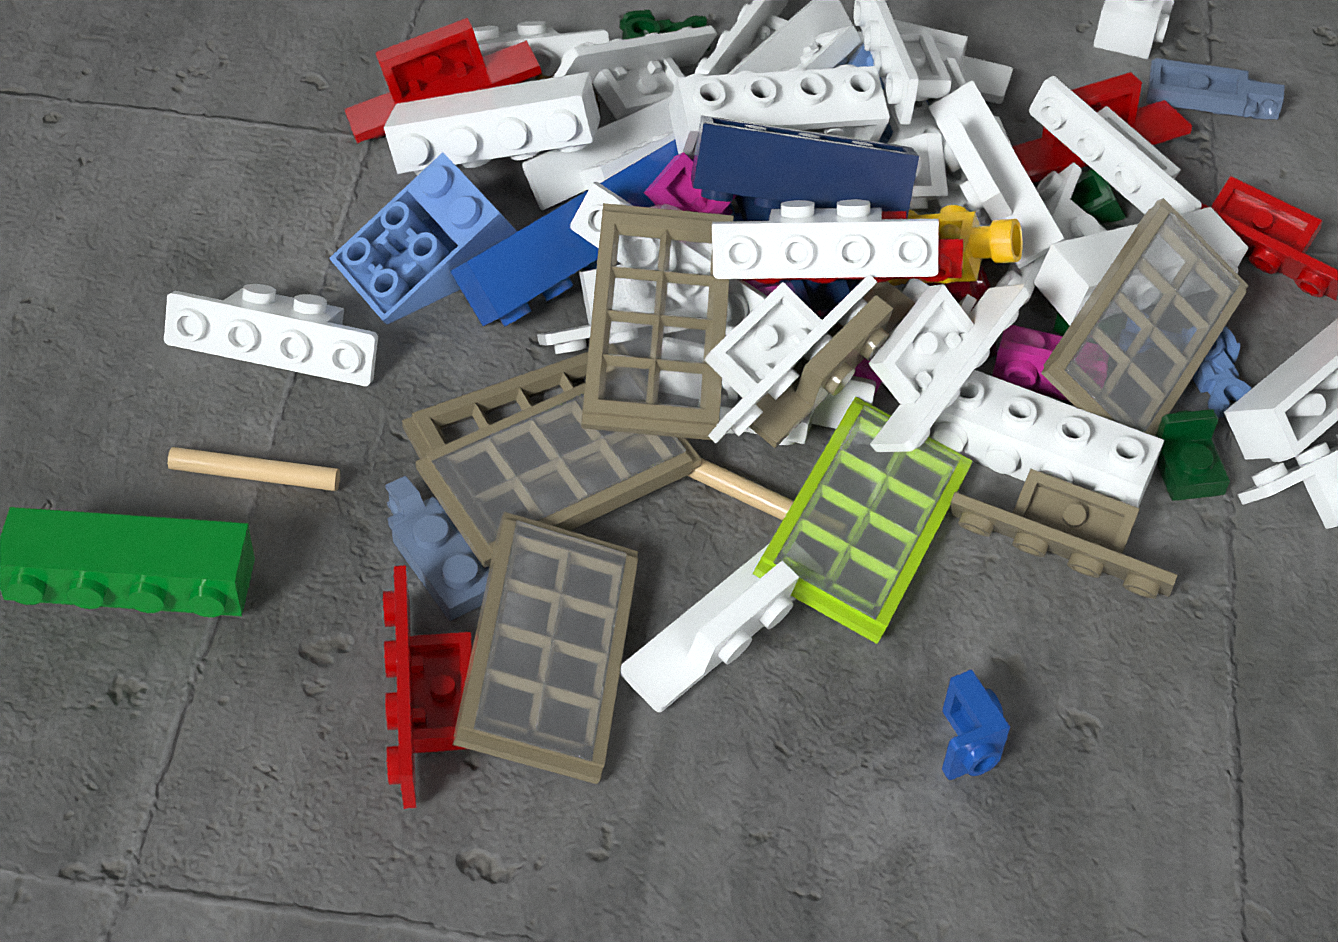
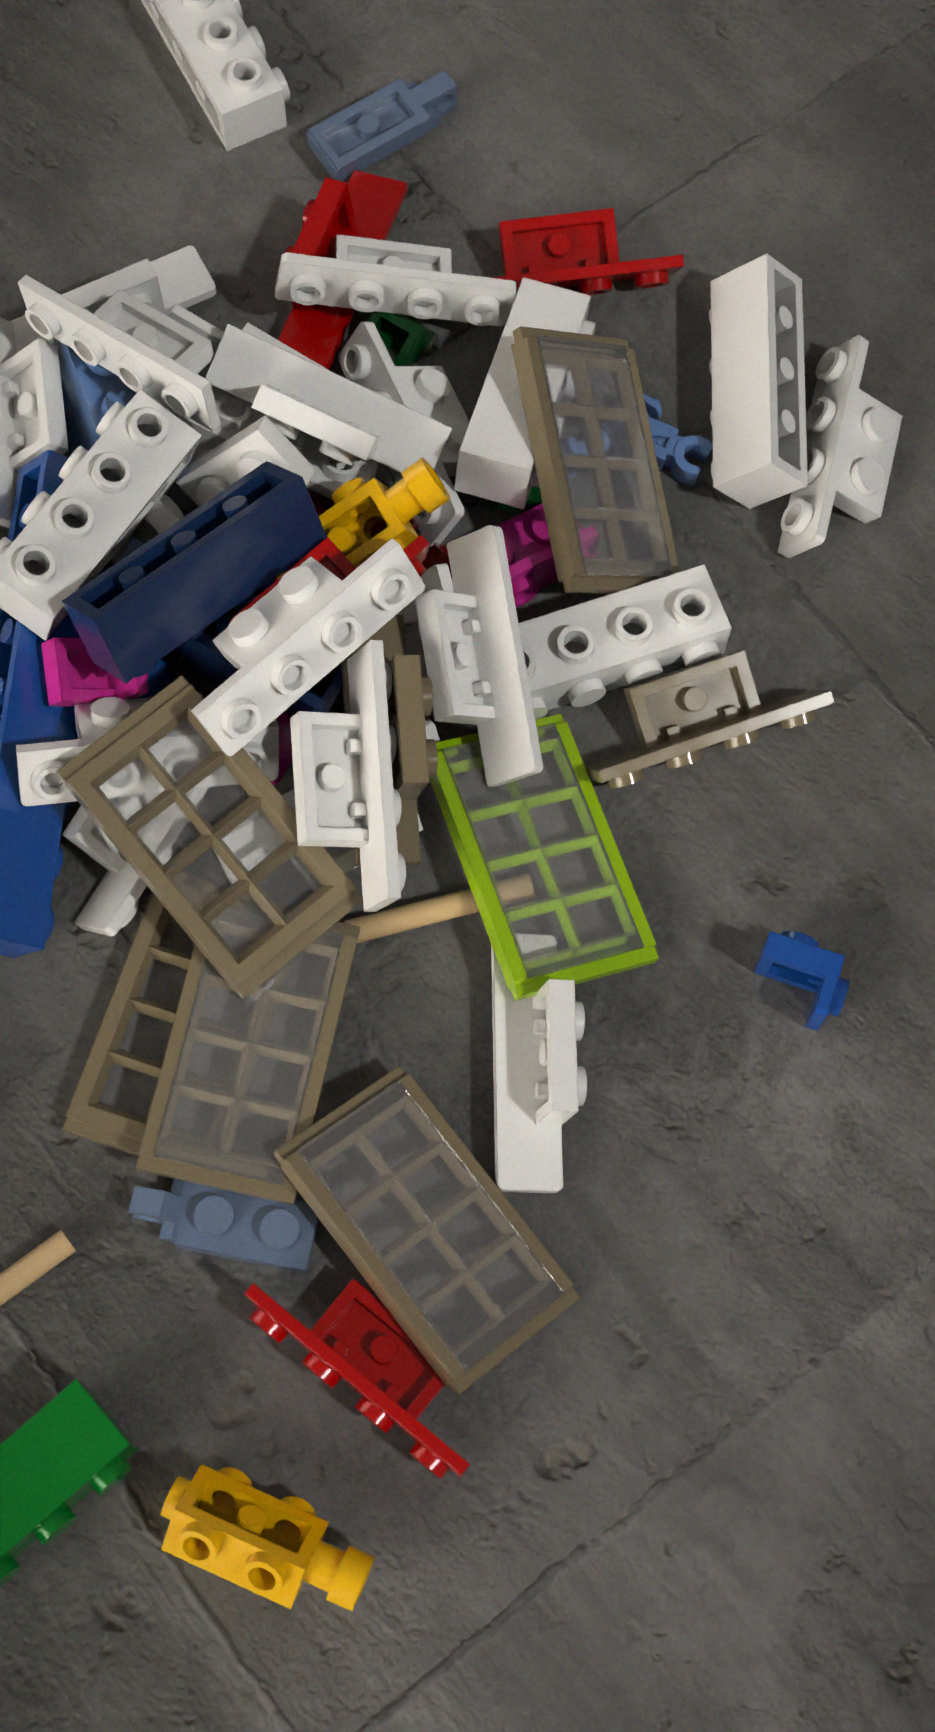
camera: 45 degrees left, 20 degrees up
(246, 716) = (259, 1539): none -> yellow brick
(1189, 457) = (724, 550): dark green bracket -> none

